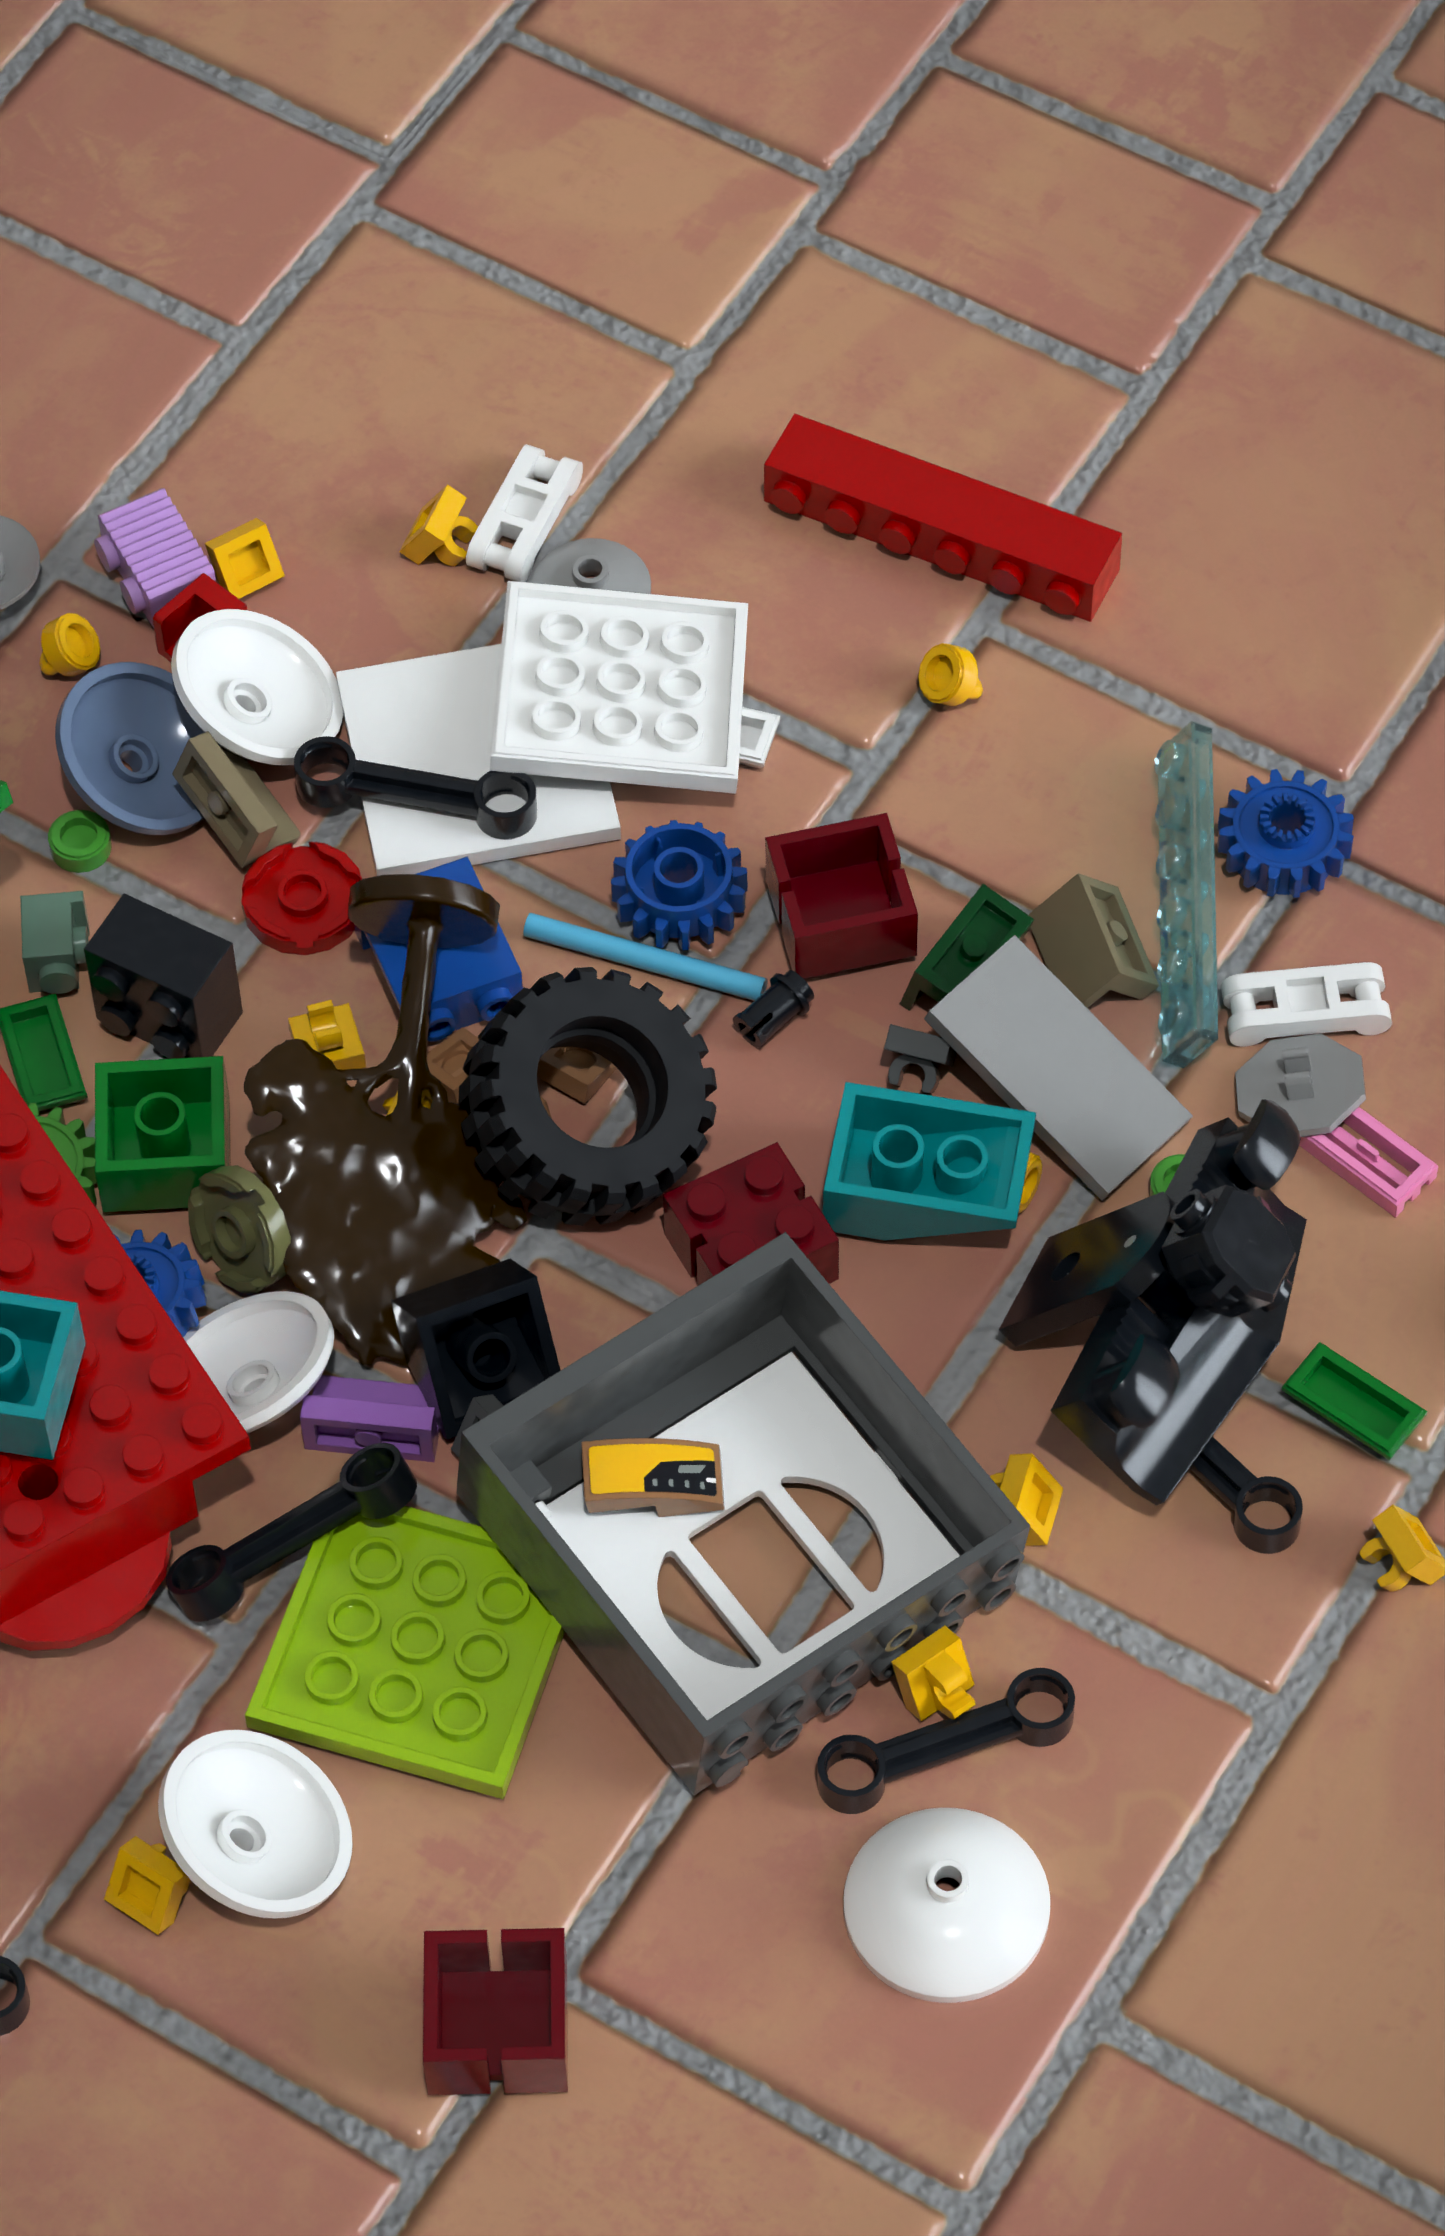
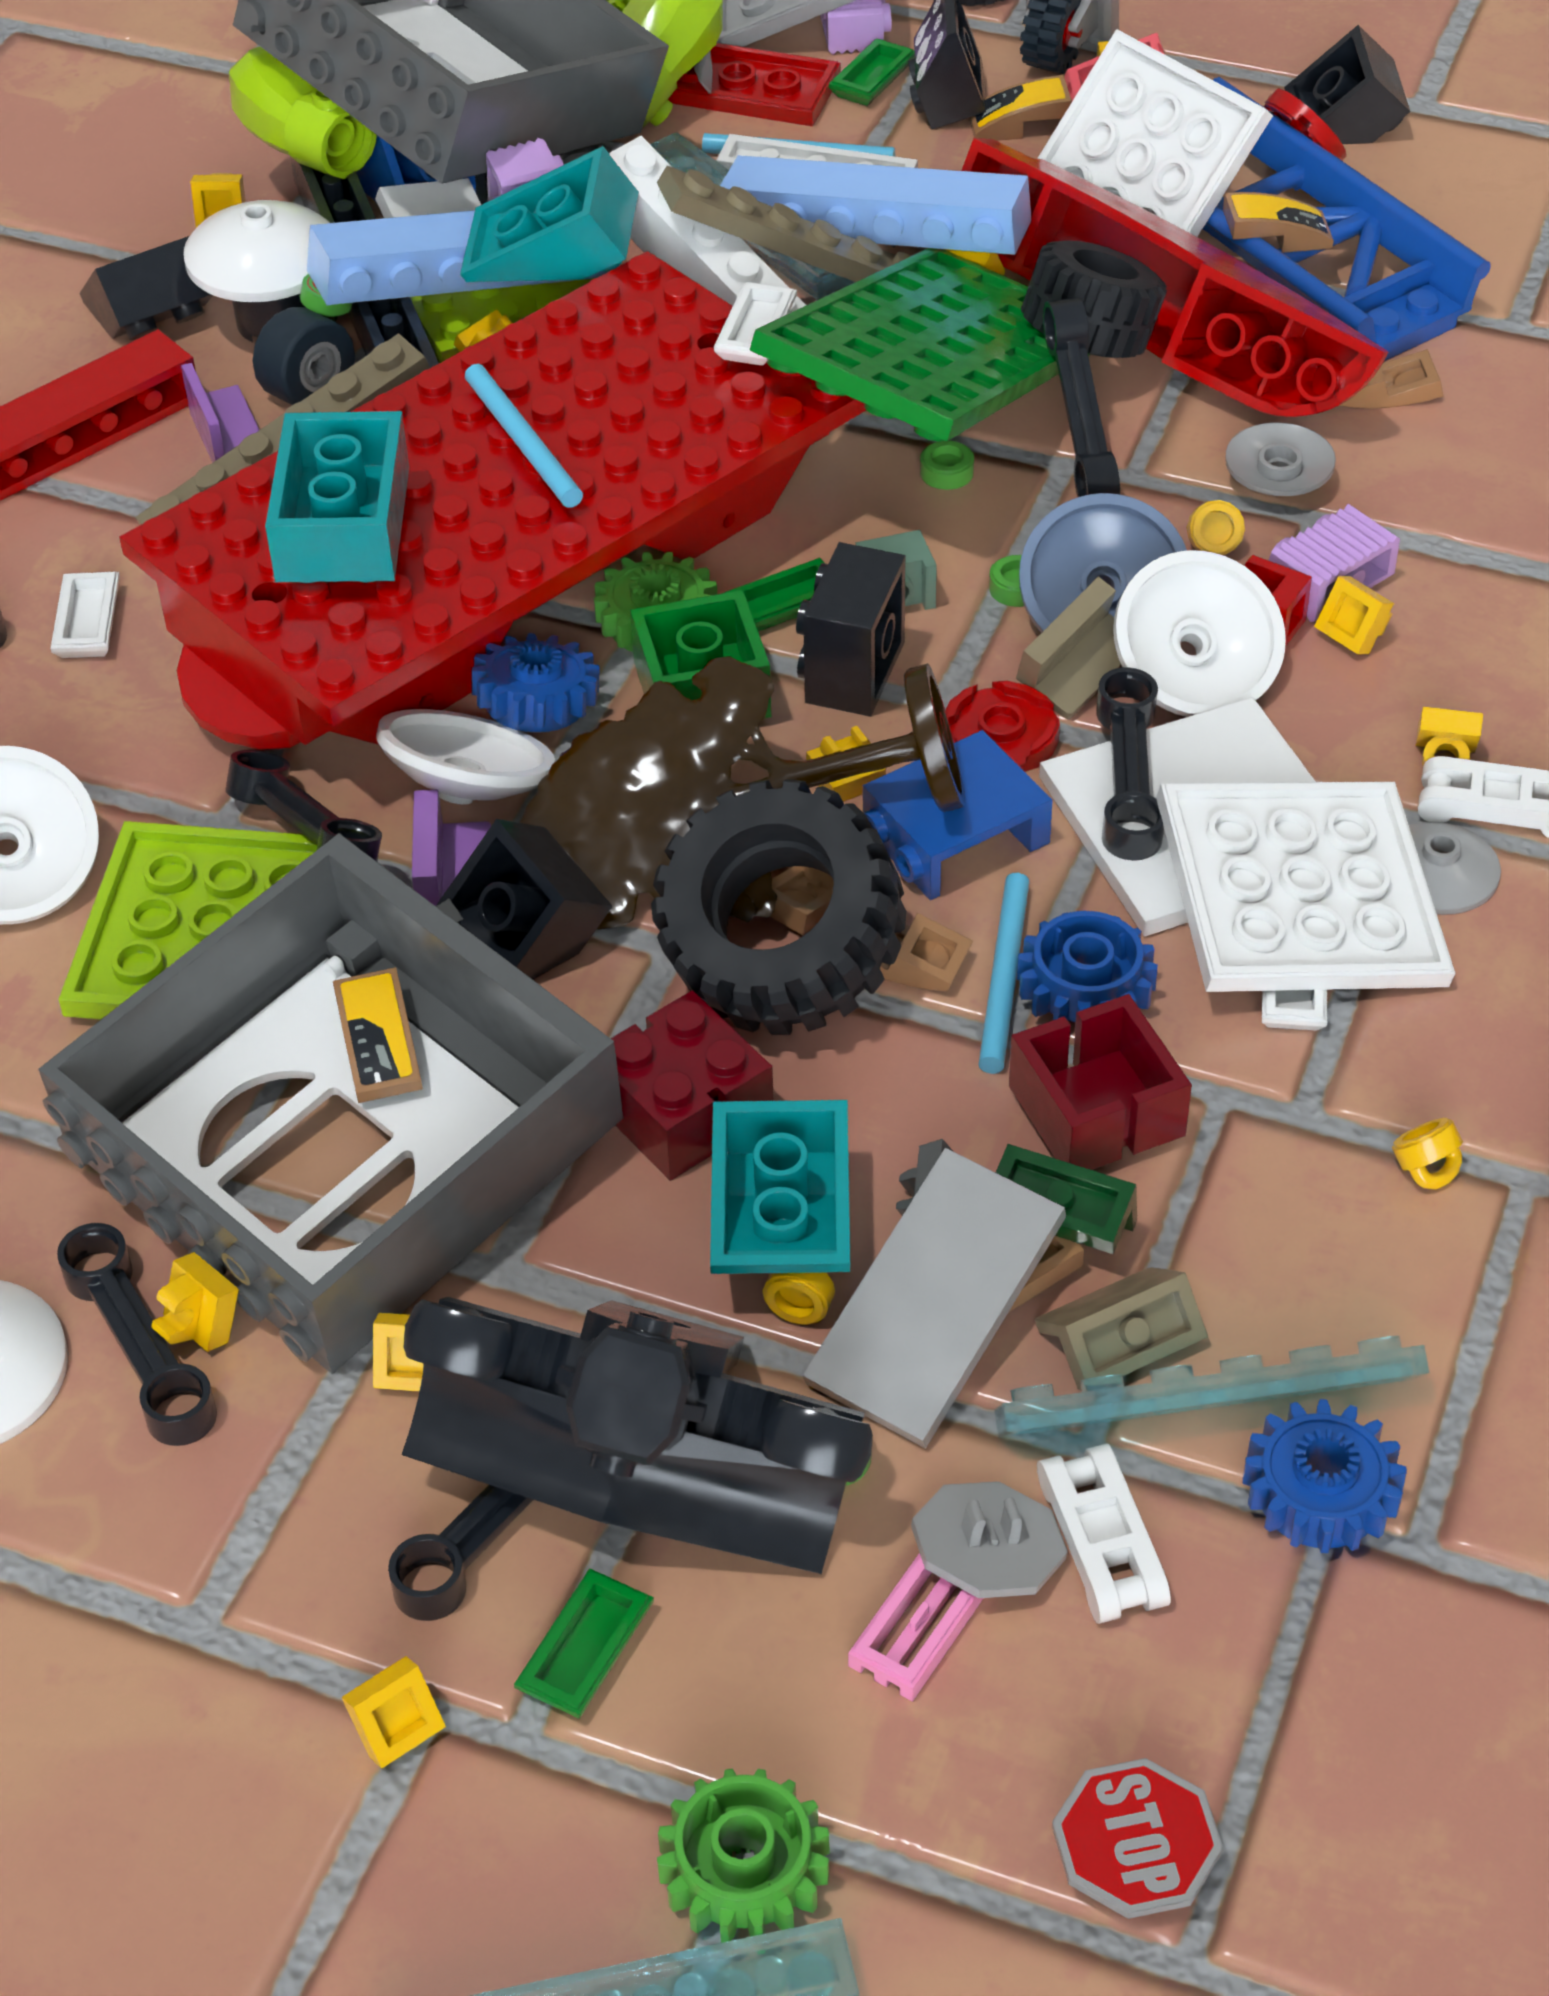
camera: 80 degrees right, 10 degrees down
(240, 1228) = (626, 693): olive tile -> none
(775, 1007) = (977, 1075): black pin -> none

